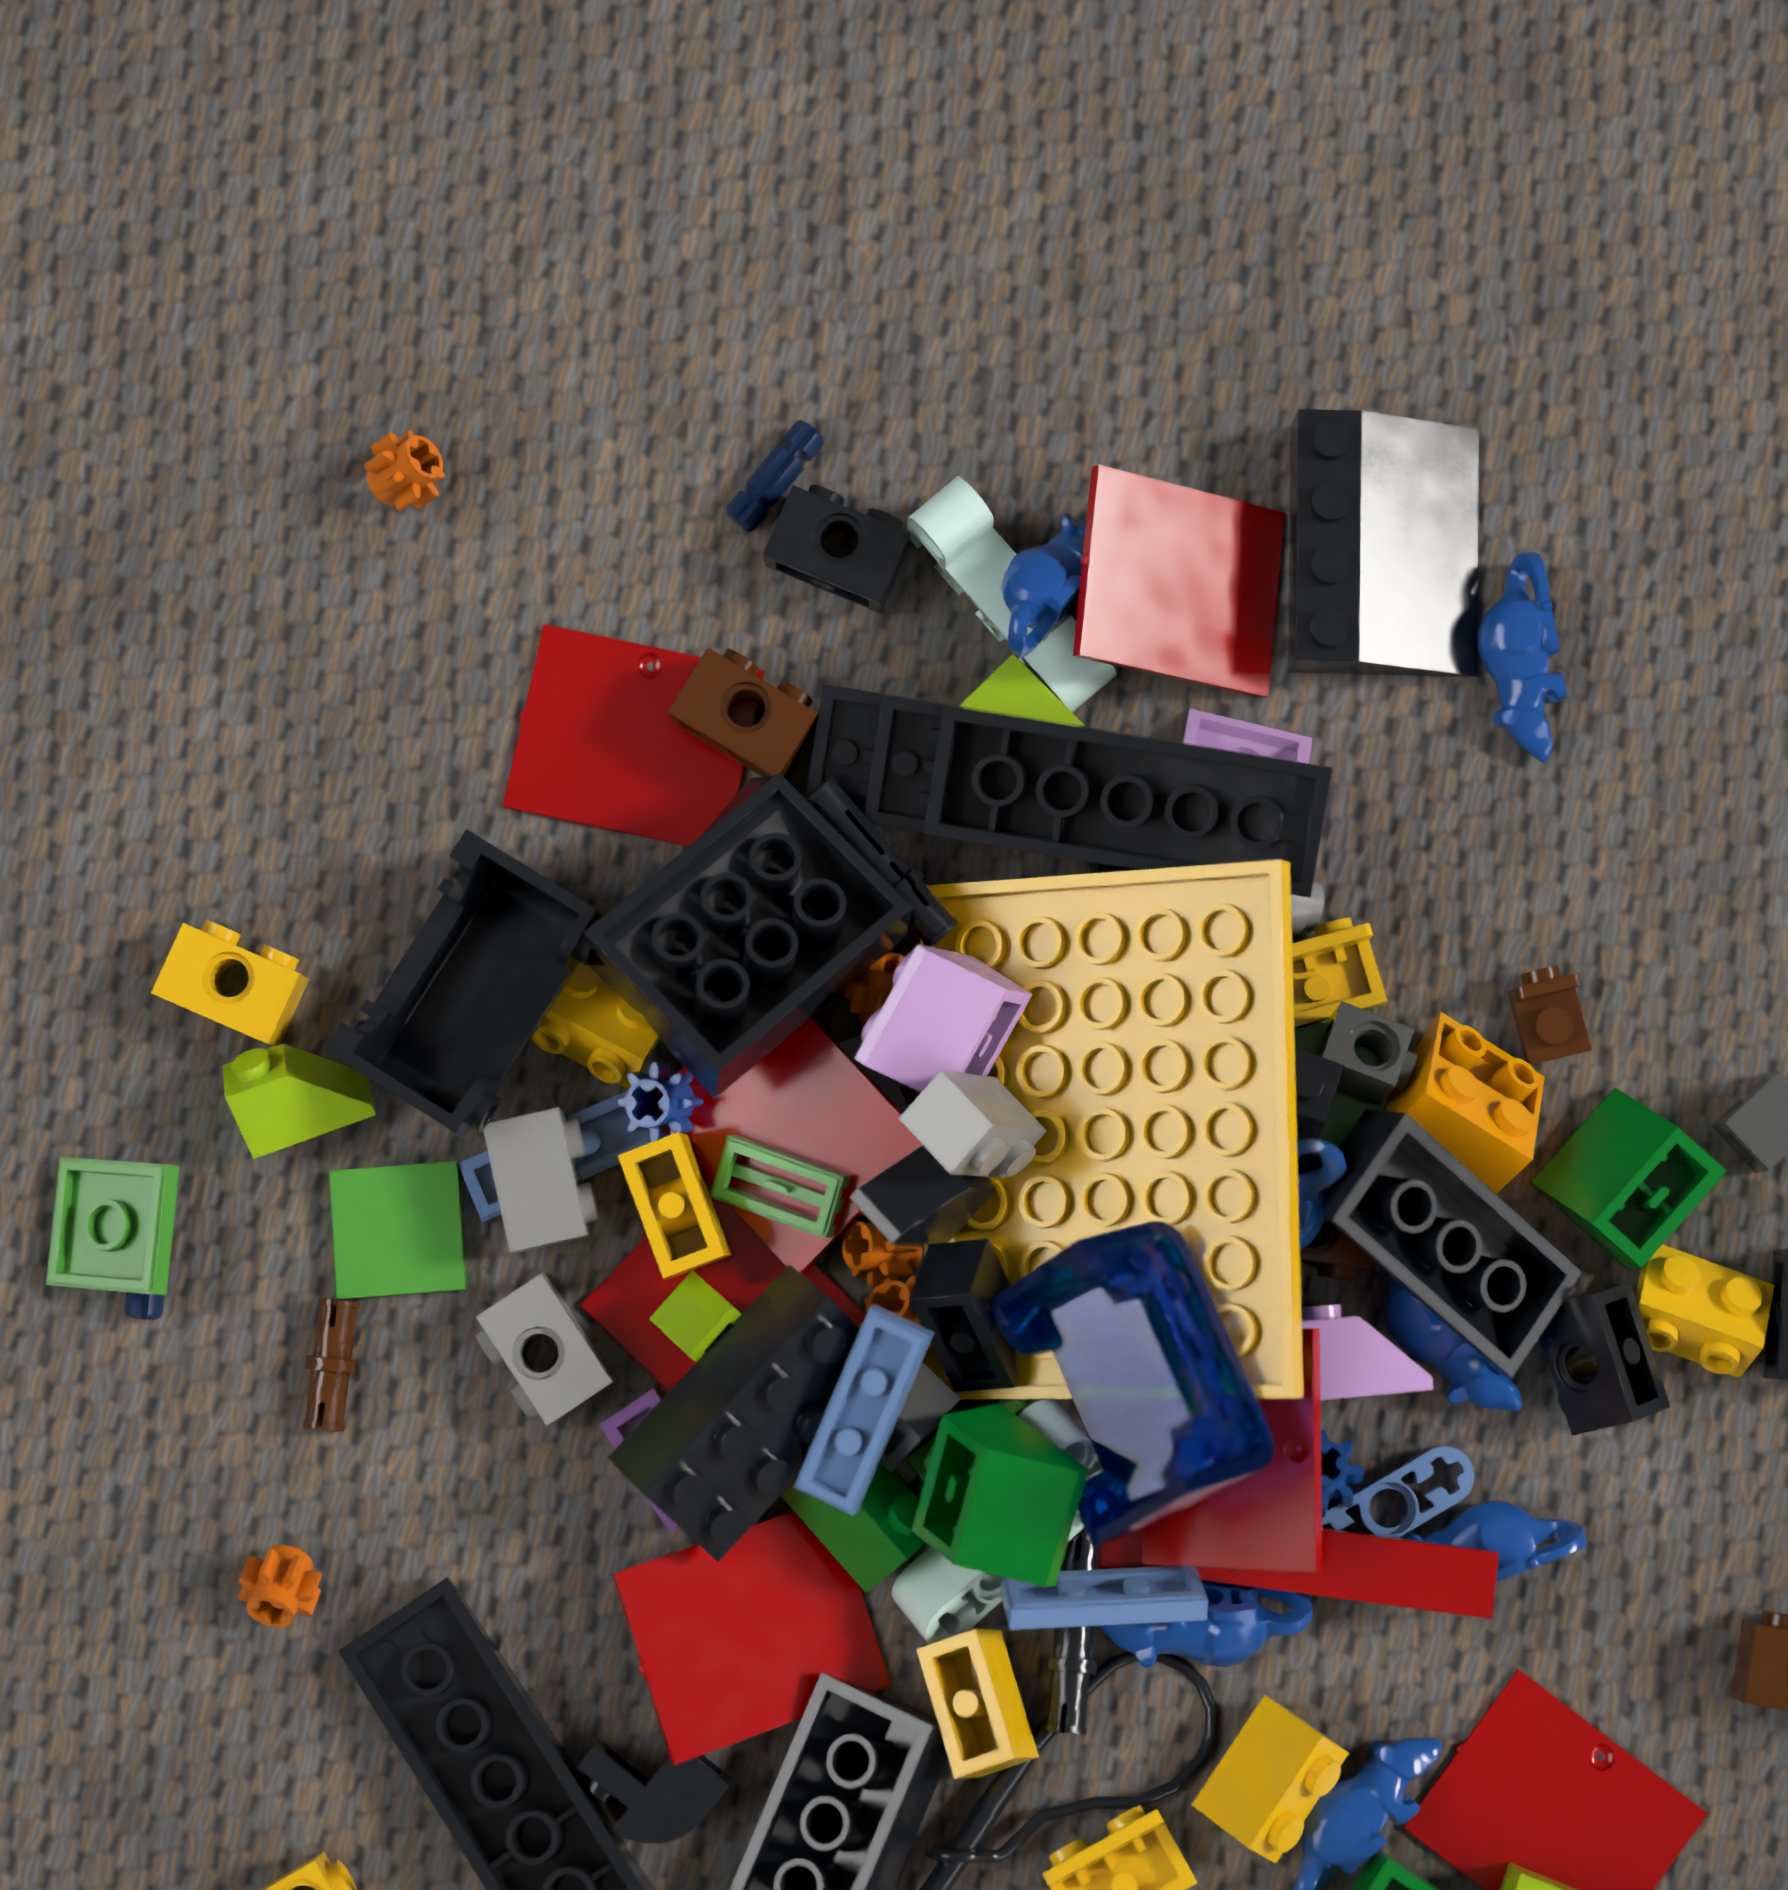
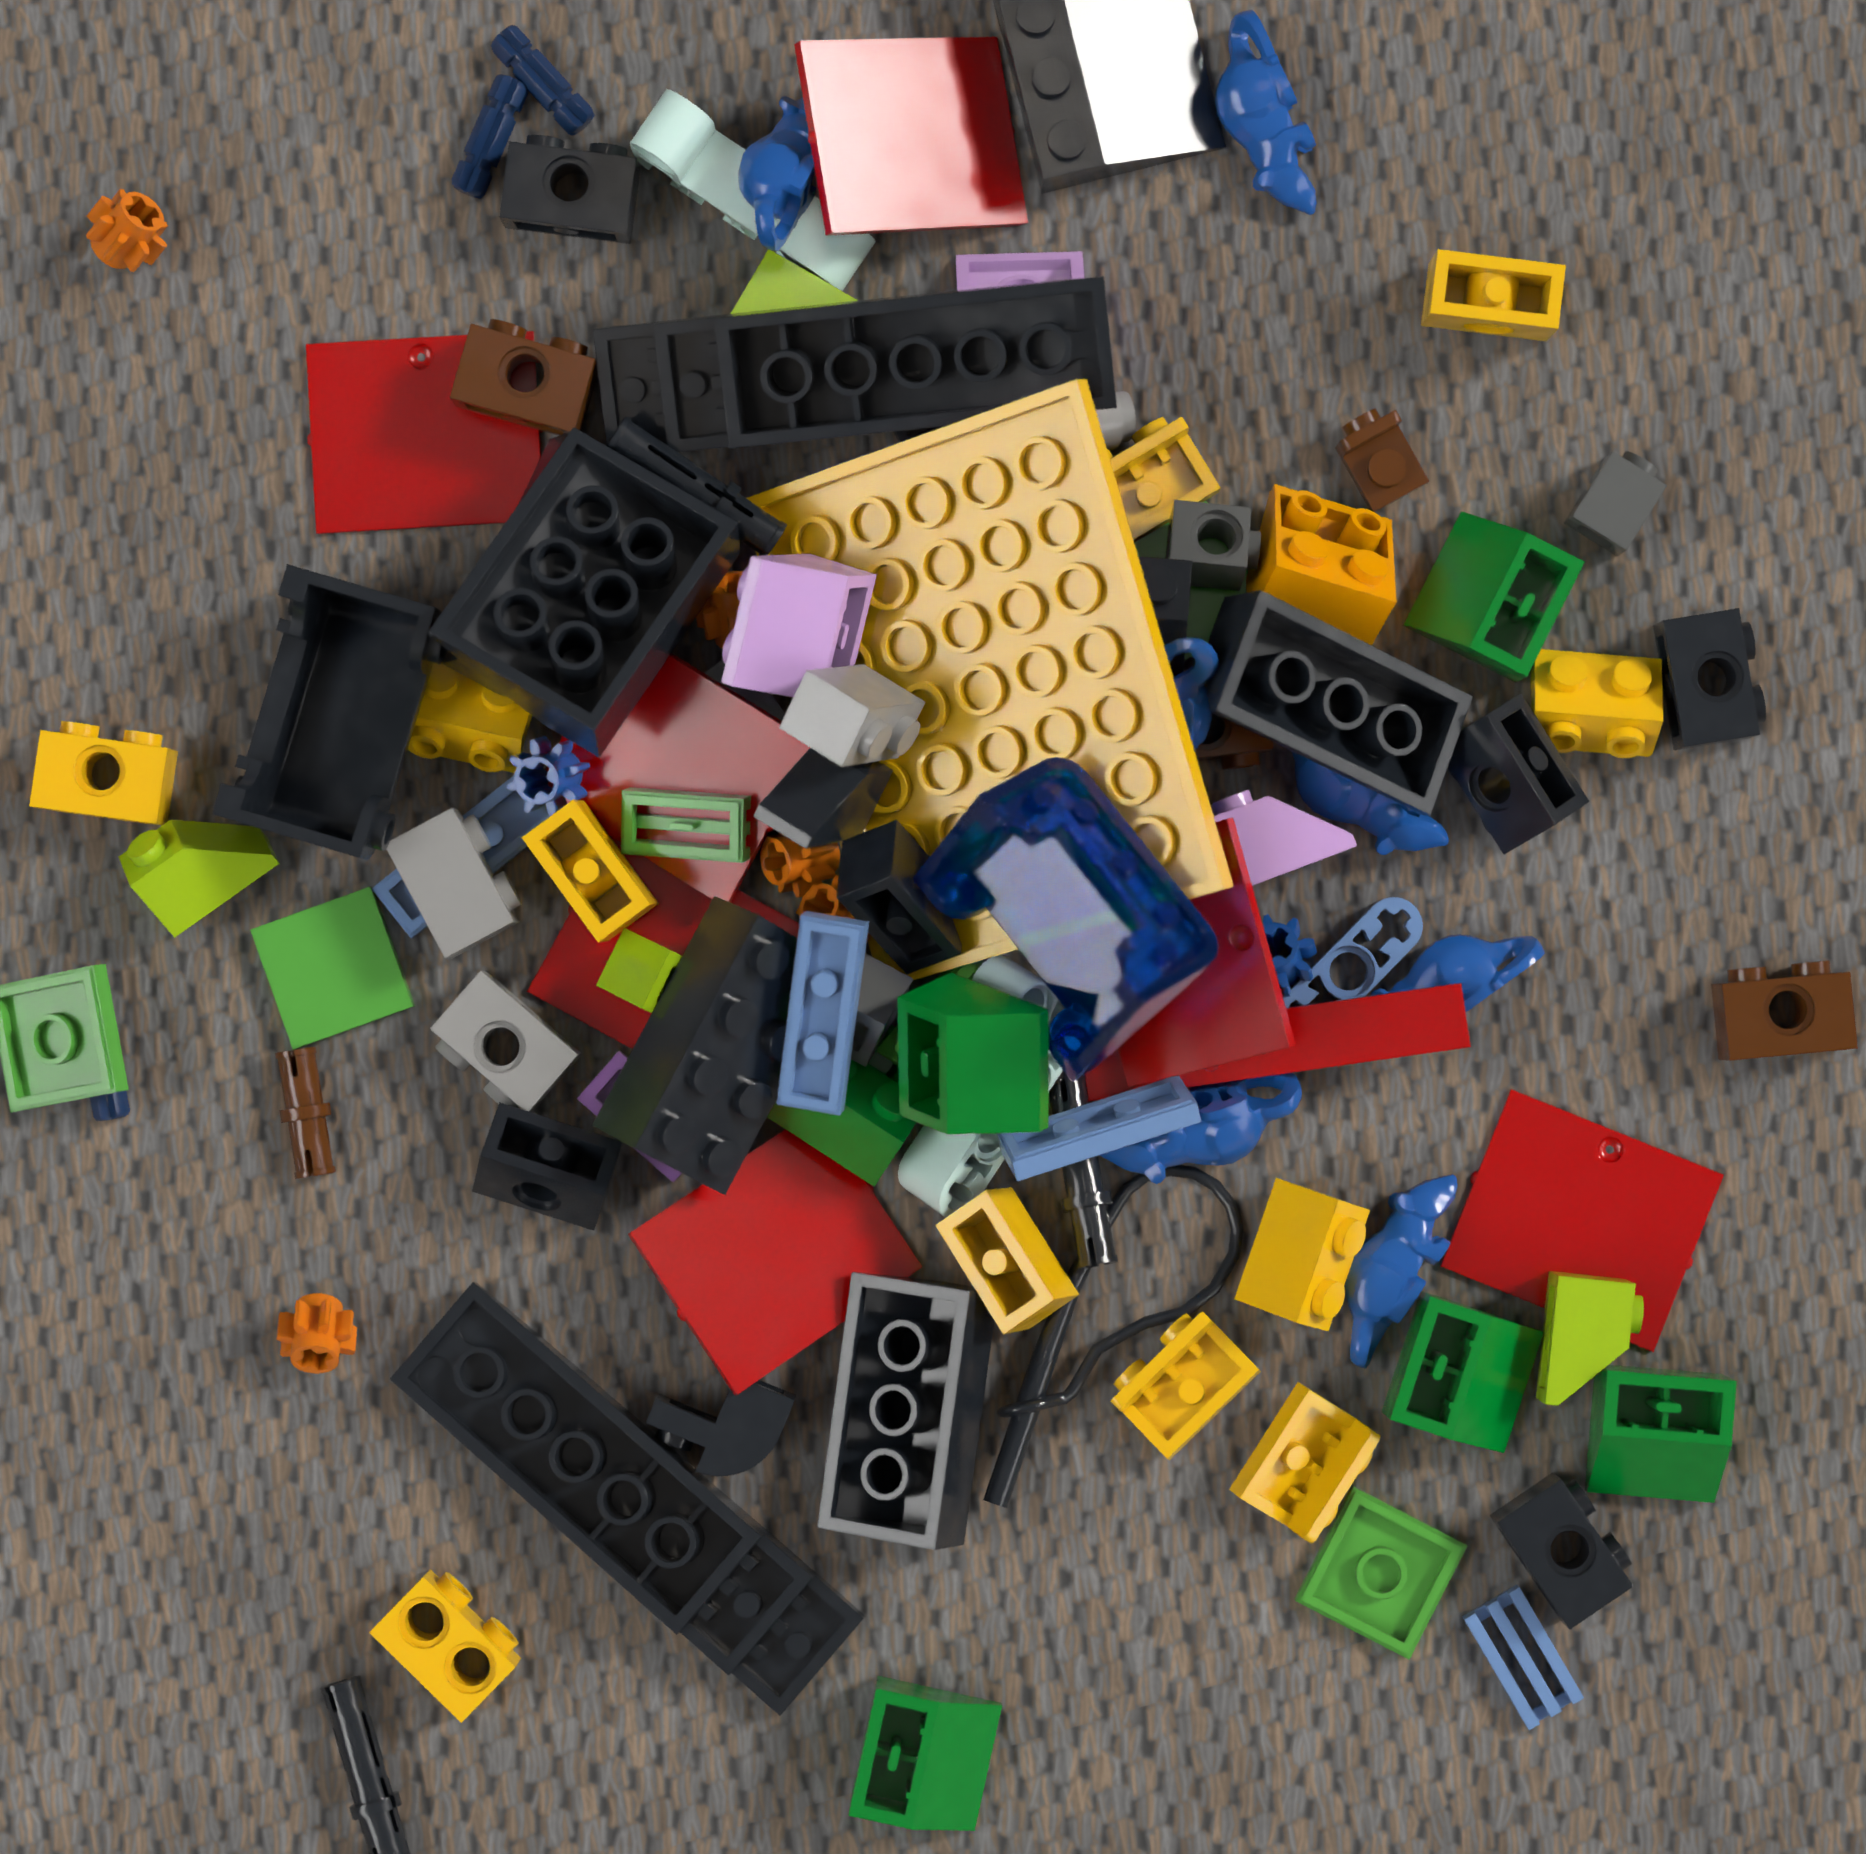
camera: 15 degrees left, 5 degrees up
(551, 1483) = (546, 1166): none -> black brick
(840, 436) = (542, 80): none -> dark blue axle
(1701, 888) = (1493, 295): none -> yellow brick

